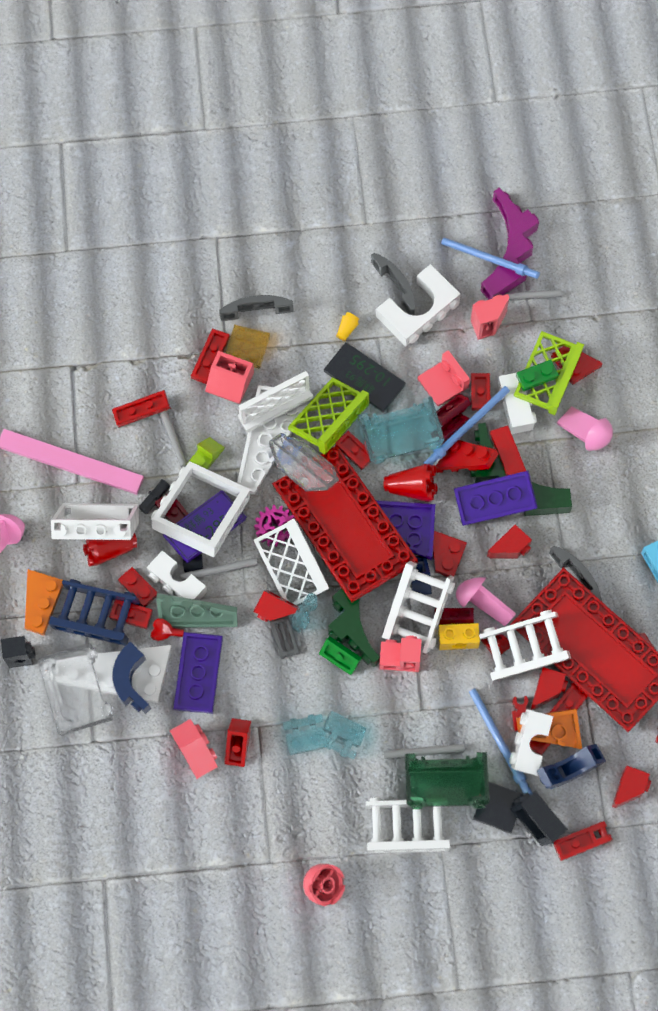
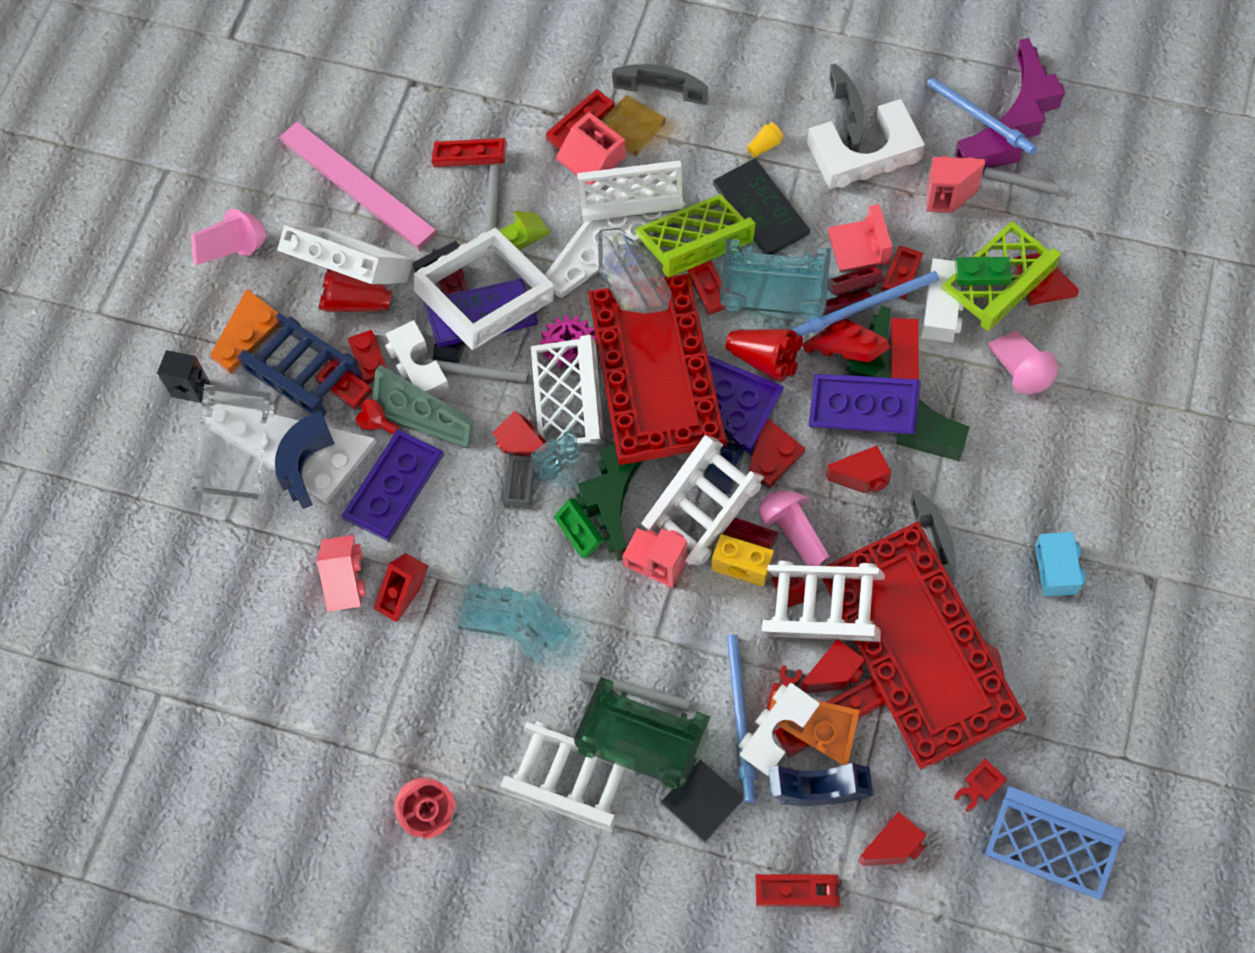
camera: 25 degrees right, 5 degrees down
(538, 818) = (745, 832): black window -> none

